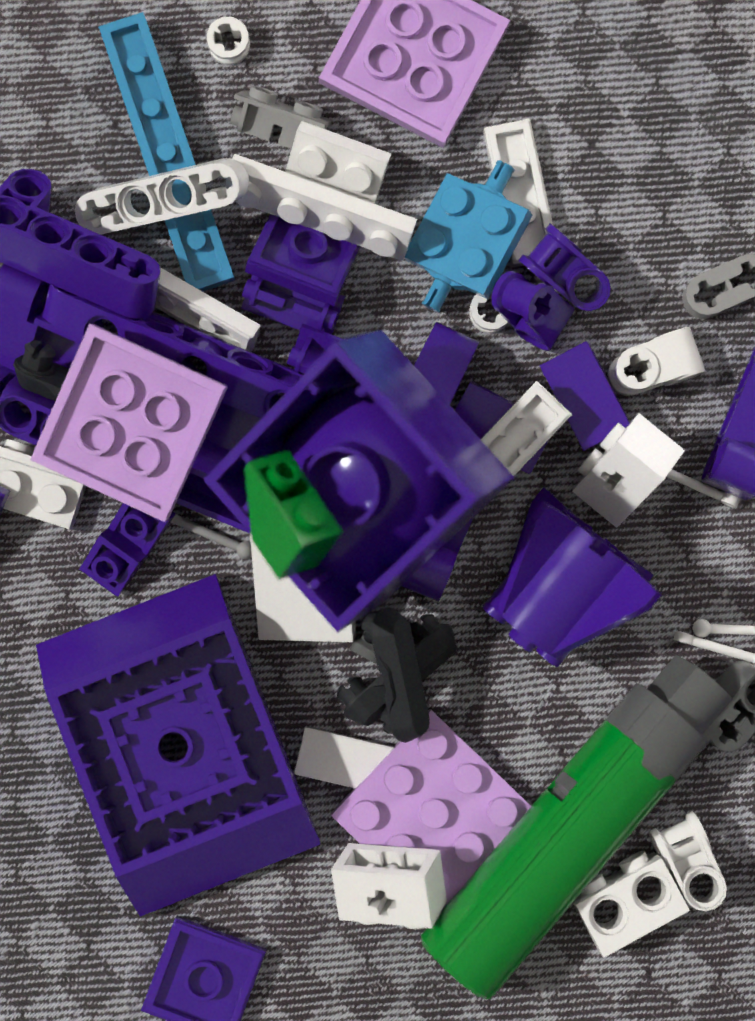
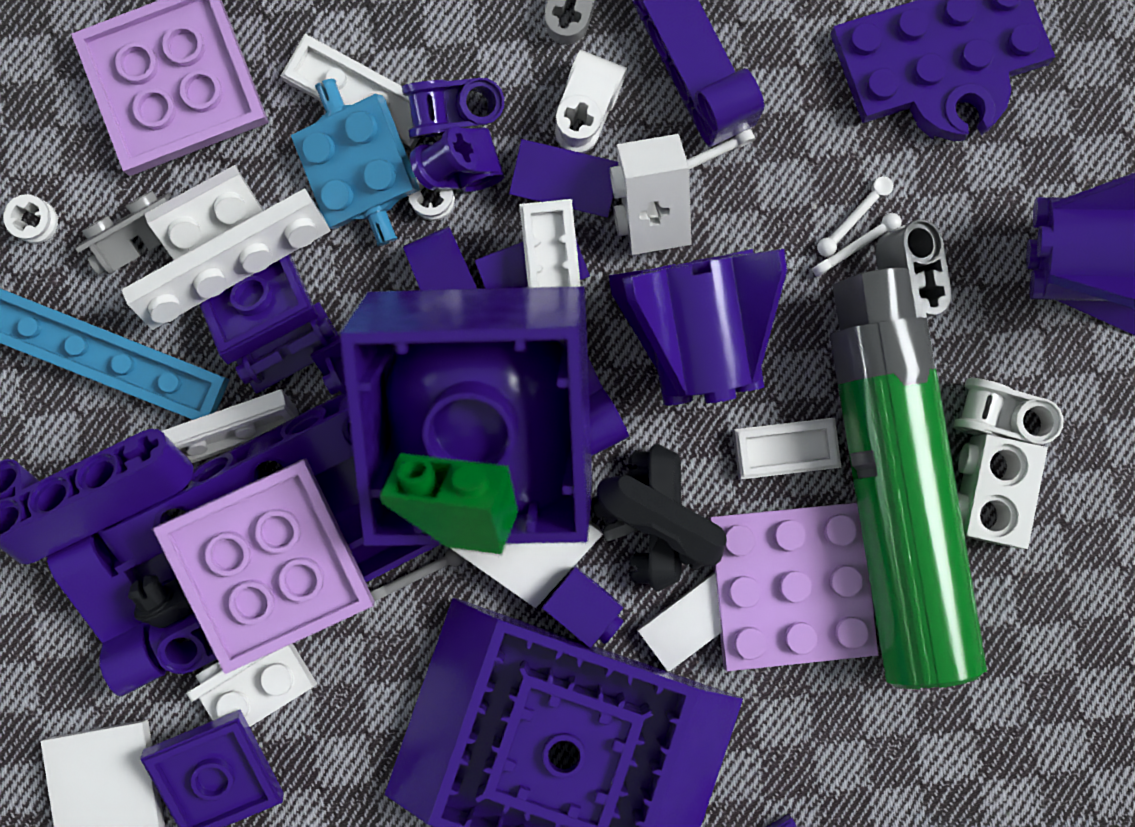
camera: 45 degrees left, 0 degrees up
(123, 548) = (367, 655): dark purple slope -> none
(159, 192) = (102, 379): white beam -> none
(289, 674) = (584, 608): none -> dark purple brick
(389, 885) = (825, 673): white brick -> none
(529, 723) = (786, 448): none -> white tile

